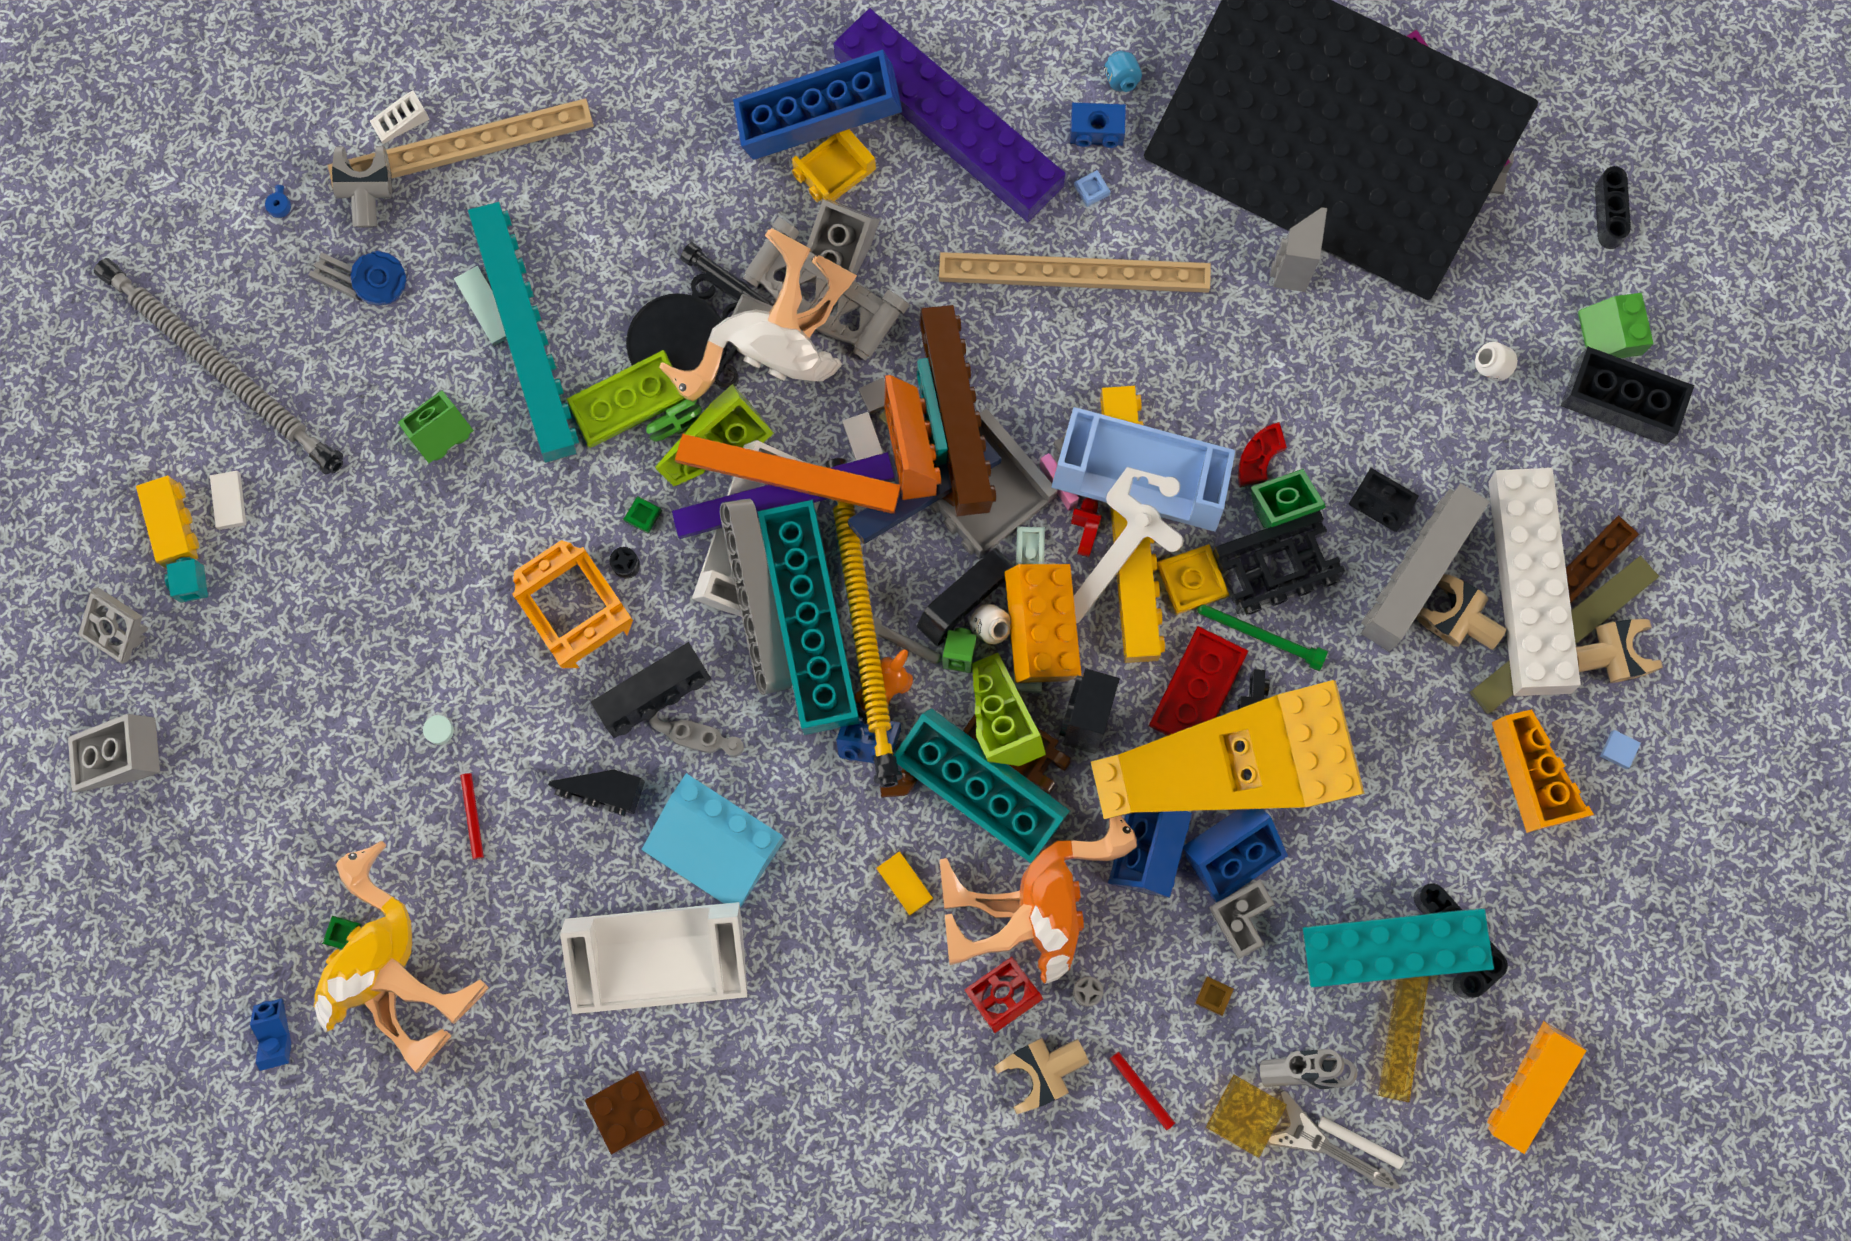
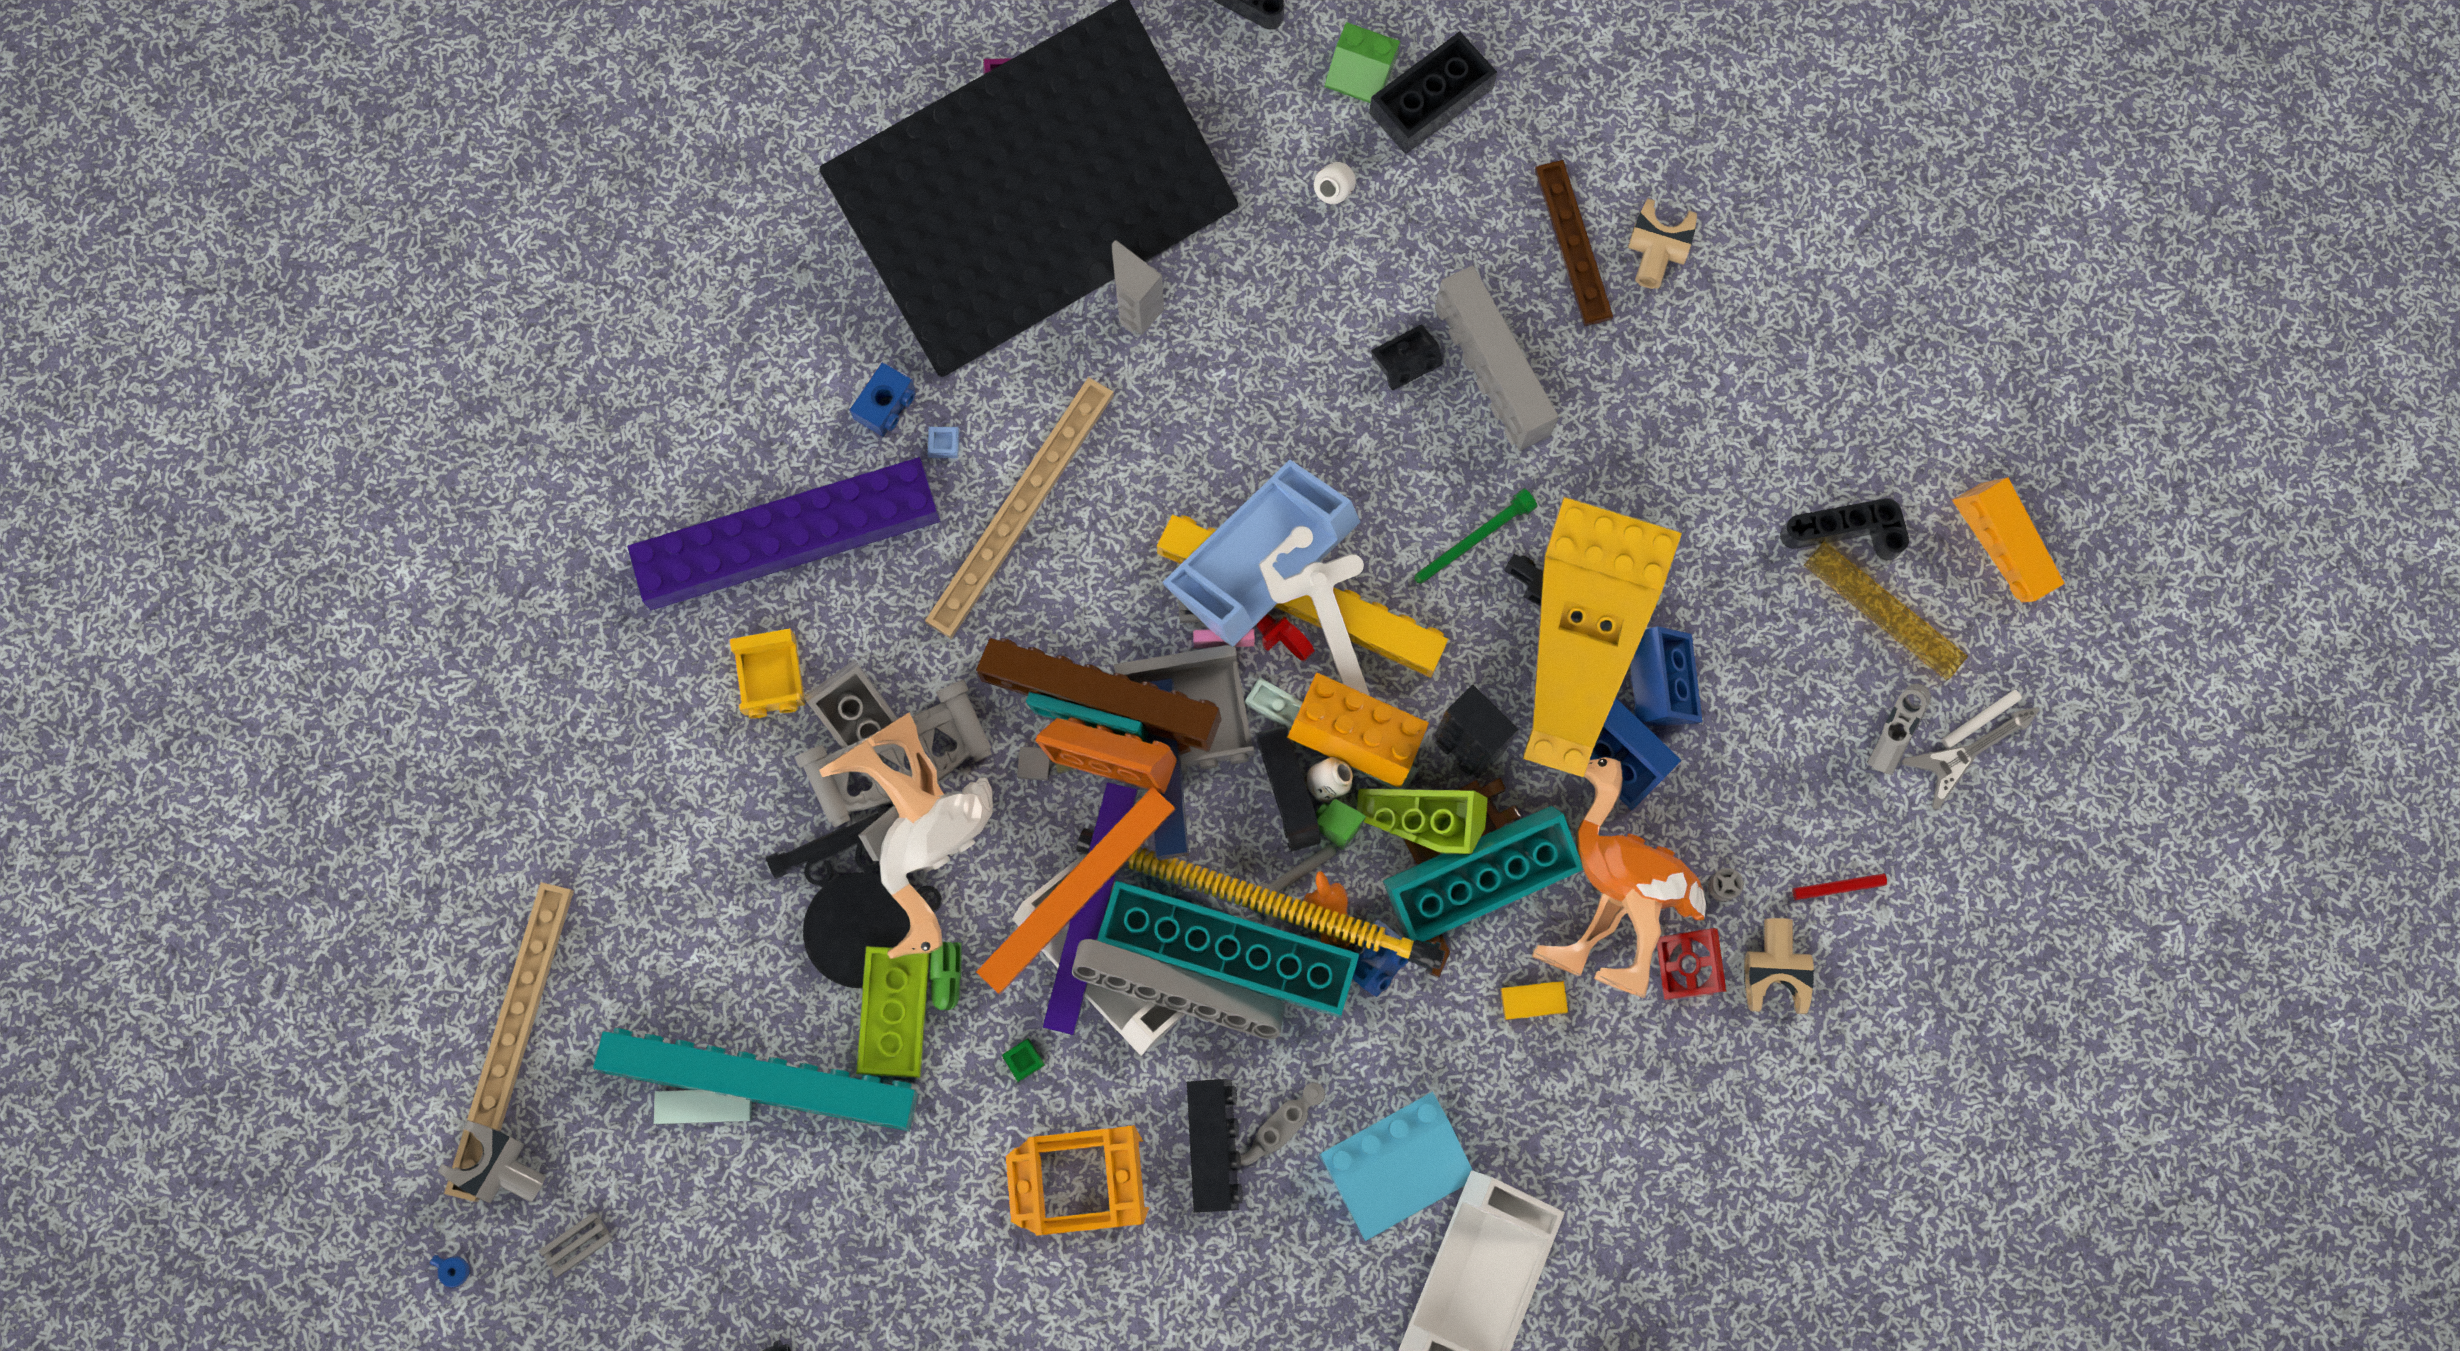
camera: 65 degrees left, 0 degrees up
(378, 278) = (605, 1203): blue tile -> none
(401, 105) = (448, 1090): white slope -> none
(435, 427) = (806, 1225): bright green slope -> none
(608, 788) = (1290, 1239): black slope -> none
(621, 557) = (1060, 1102): black wheel -> none
(726, 420) = (980, 925): lime wedge -> none
(817, 105) = (702, 653): blue brick -> none
(862, 436) = (1072, 800): white tile -> none
(1122, 71) = (842, 345): dark azure head -> none
(1192, 579) = (1387, 570): yellow tile -> none
(1199, 683) = (1491, 623): red tile -> none
(1214, 996) = (1786, 773): pearl gold tile -> none
(1234, 917) = (1726, 713): light grey brick -> none
(1246, 1116) = (1910, 806): clear yellow tile -> none
(1258, 453) = (1299, 442): red tile -> none
(1269, 541) = (1393, 481): black fence -> none
(1285, 499) = (1365, 442): green slope -> none
(1398, 947) = (1832, 585): teal brick -> none
(1464, 616) = (1558, 351): tan connector -> none
(1533, 582) = (1560, 273): white brick -> none
(1536, 774) = (1736, 375): light orange wedge -> none
(1585, 618) = (1618, 278): olive tile -> none
(1620, 749) = (1747, 292): light blue tile -> none

